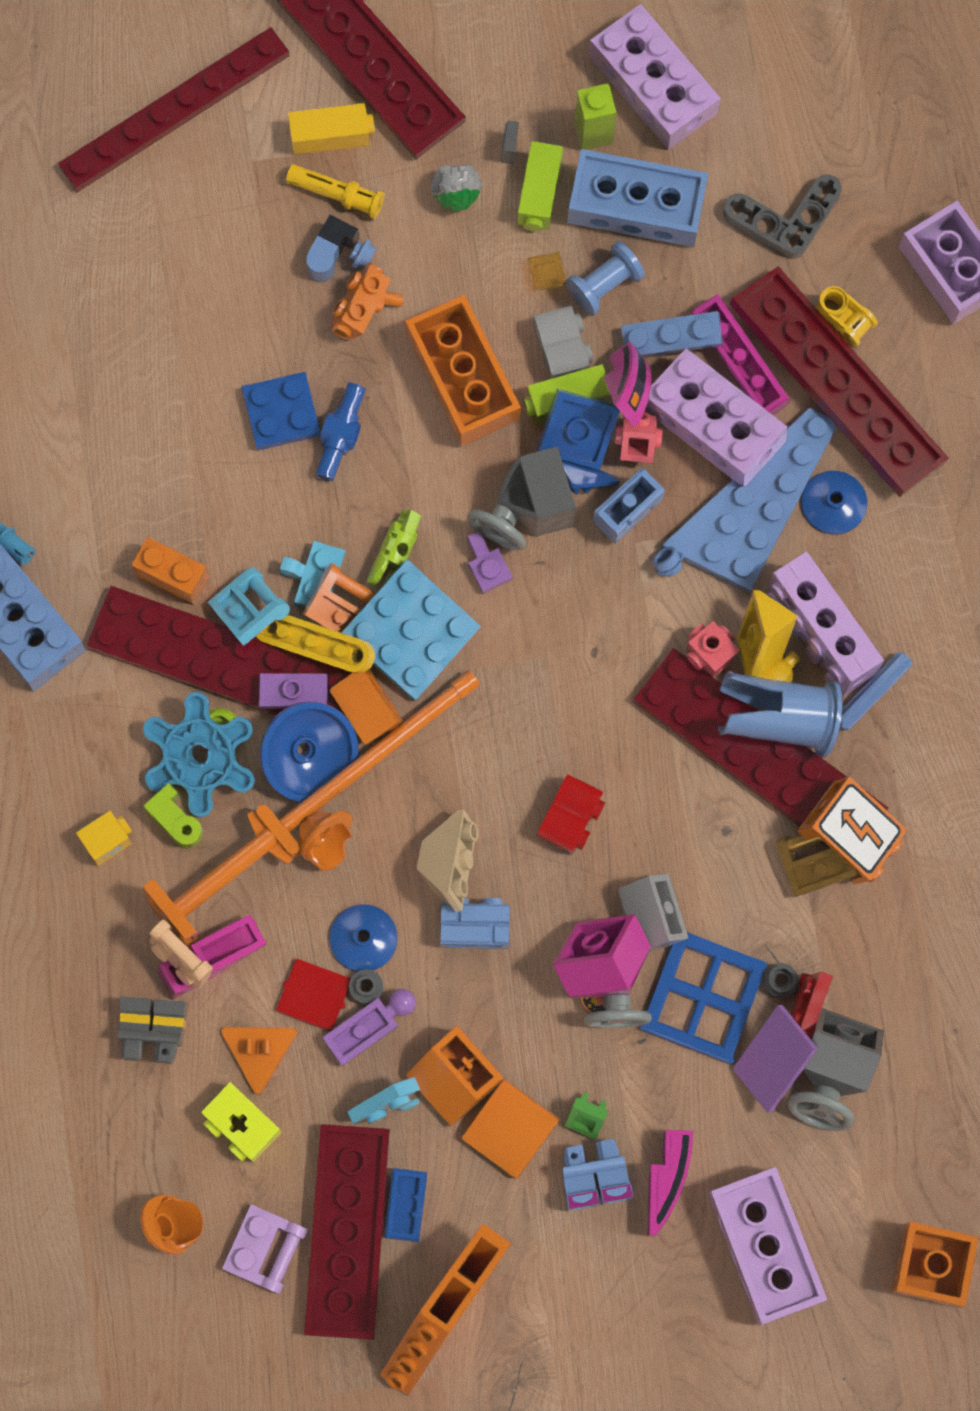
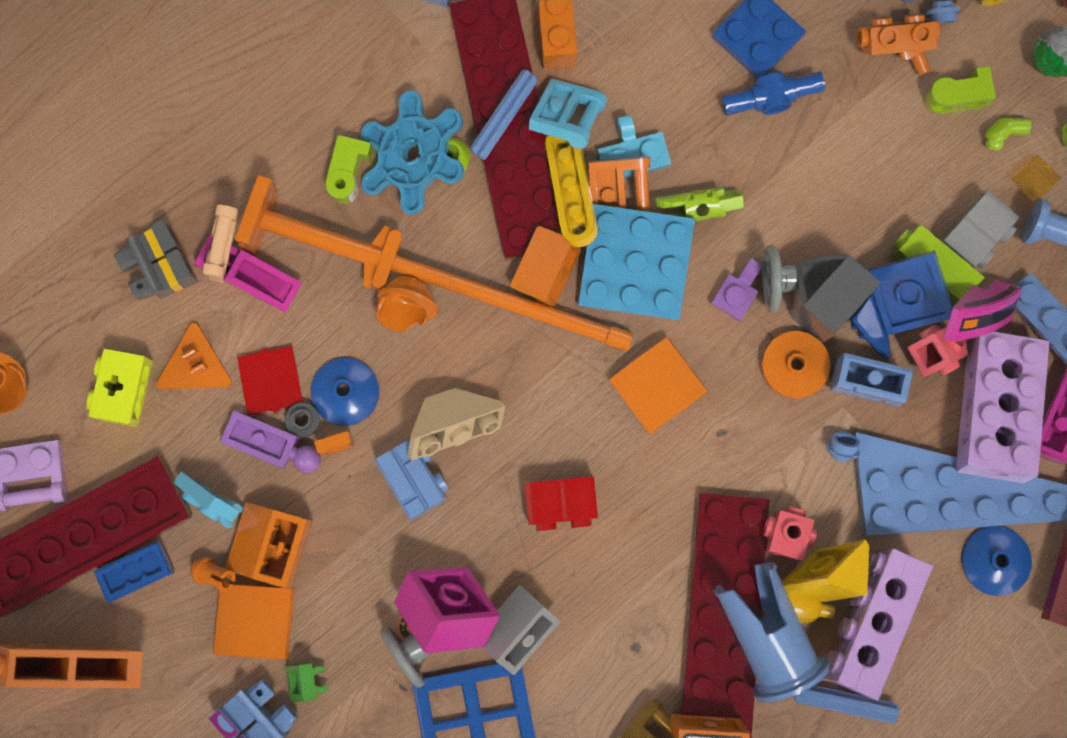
camera: 60 degrees right, 5 degrees up
(105, 837) = (294, 122): yellow brick -> none
(216, 658) = (503, 114): none -> medium blue axle
(284, 690) = (517, 196): medium lavender plate -> none
(329, 748) = (450, 248): blue dish -> none
(404, 970) = (334, 444): none -> orange tile
(441, 282) = (961, 95): none -> lime leg
(444, 1142) = (206, 571): none -> orange pin
(463, 370) = (897, 160): orange brick -> none
(489, 269) = (1003, 128): none -> lime arm
(524, 677) = (658, 385): none -> orange slope
(571, 573) = (778, 370): none -> orange plate

